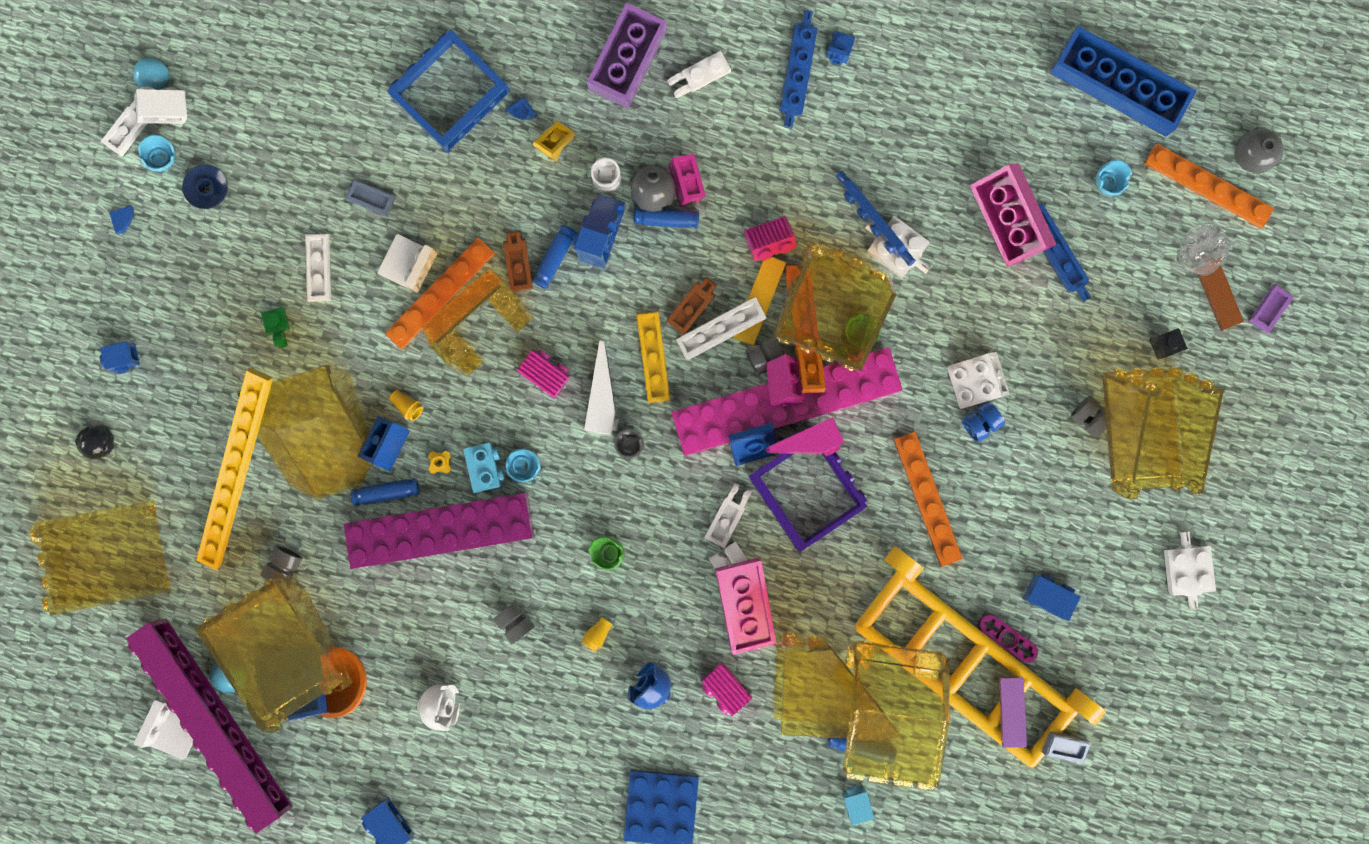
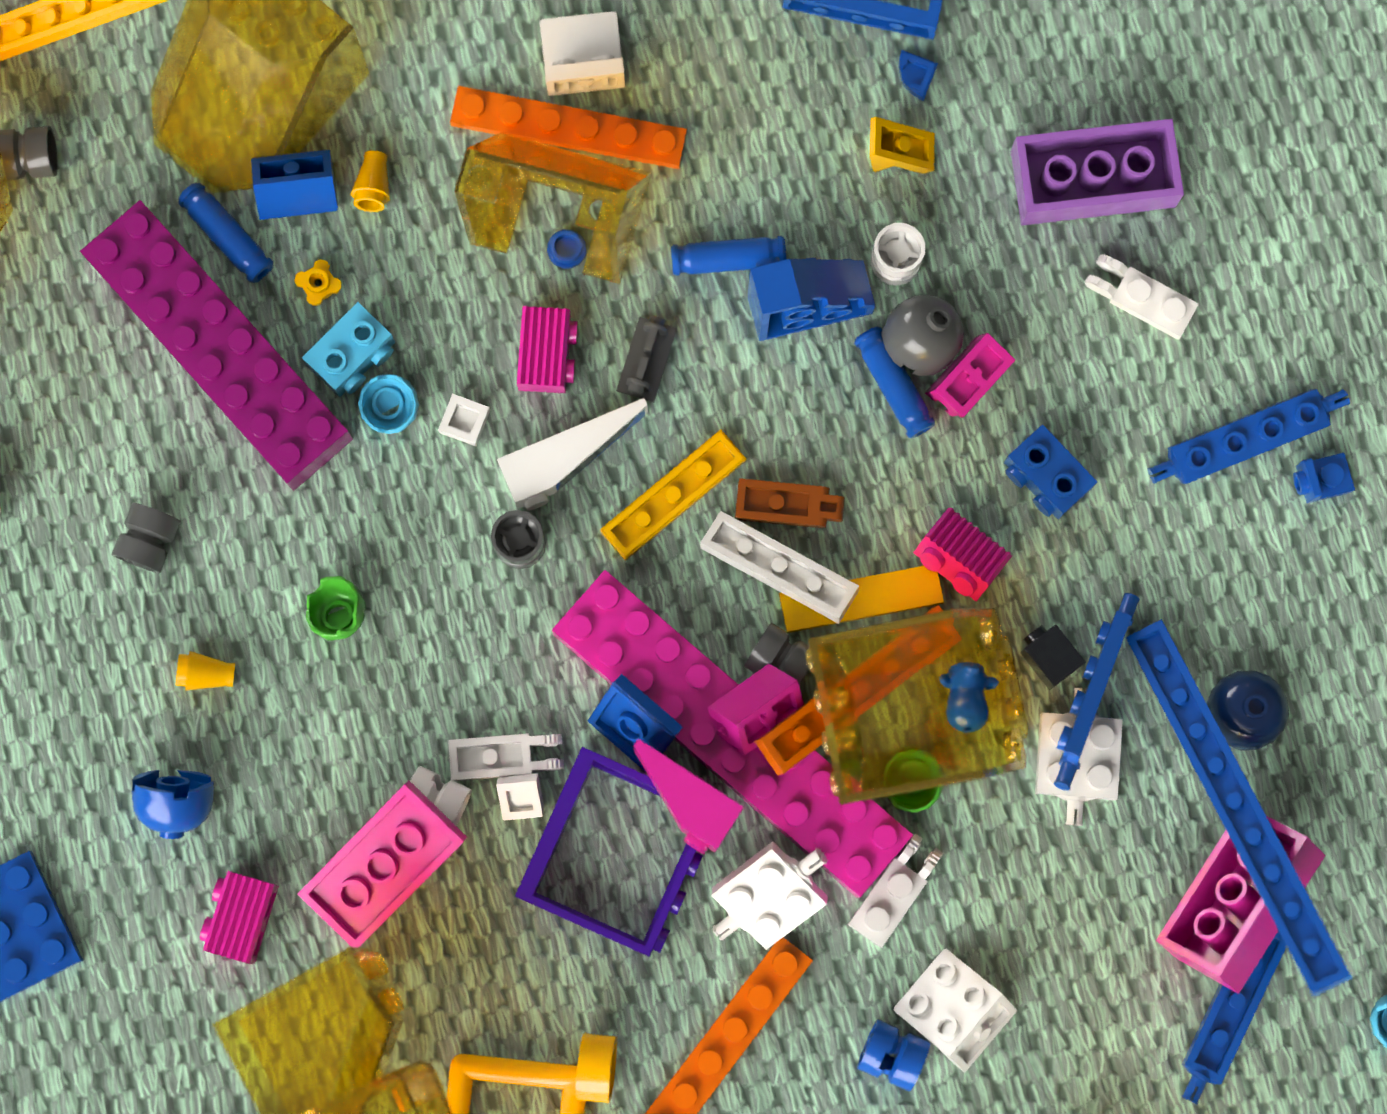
camera: 60 degrees right, 5 degrees down
(500, 332) = (566, 249): none -> blue plate
(517, 262) = (686, 208): dark orange hinge -> none
(553, 433) = (464, 419): none -> white plate
(579, 327) = (646, 358): none -> dark grey hinge
(752, 520) = (520, 796): none -> white plate
(757, 173) = (1049, 473): none -> blue brick
(843, 281) = (966, 702): none -> blue animal
(844, 228) = (1051, 655): none -> black brick
(874, 432) = (769, 895): none -> white plate
(909, 375) = (893, 895): none -> white hinge
(925, 155) = (1249, 709): none -> dark blue cylinder
(974, 187) = (1239, 810): none -> blue plate

